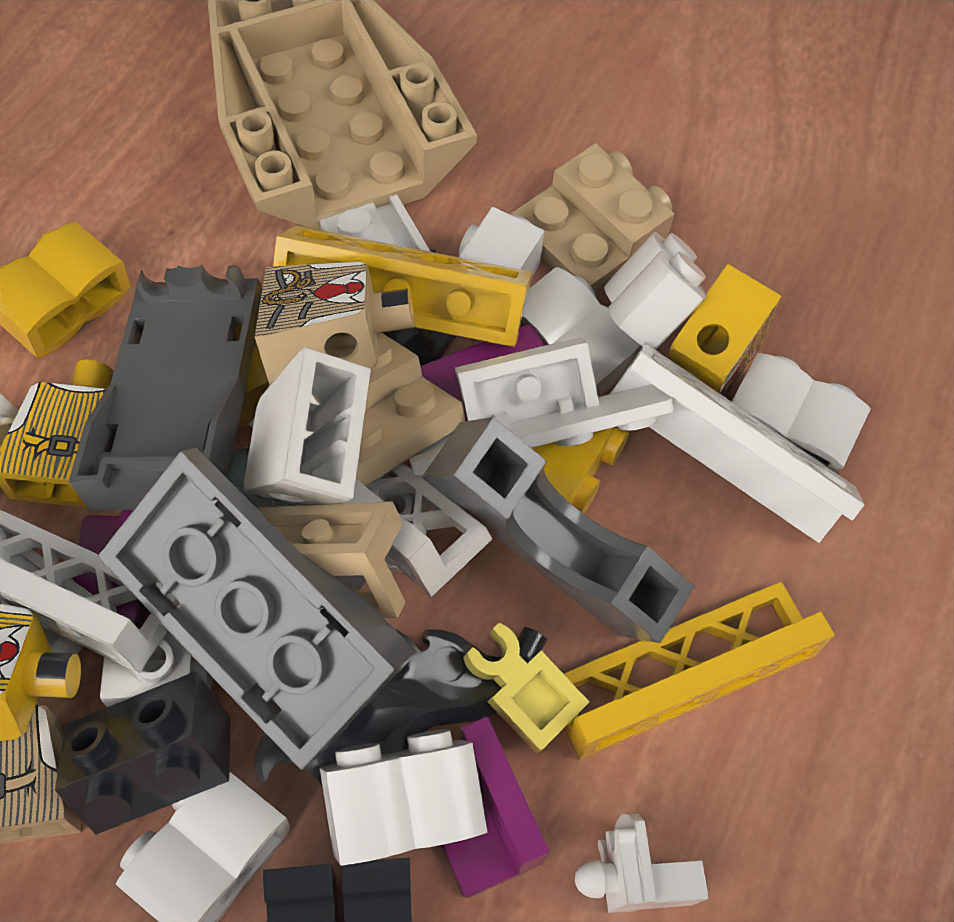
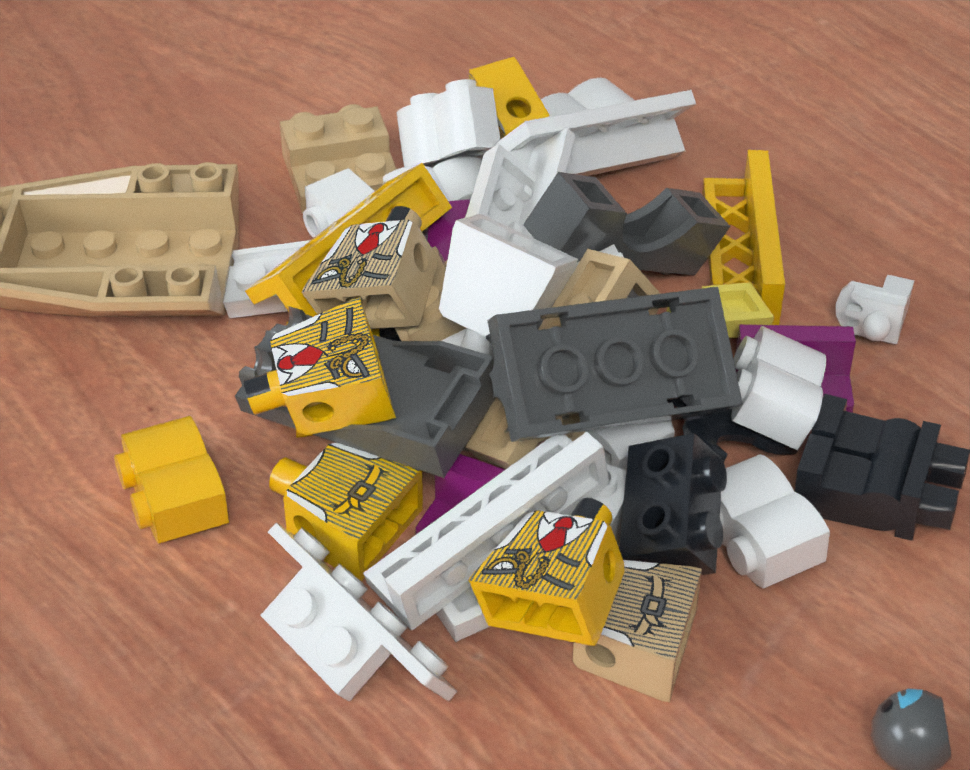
camera: 60 degrees left, 20 degrees down
(147, 342) = (325, 373): none -> torso

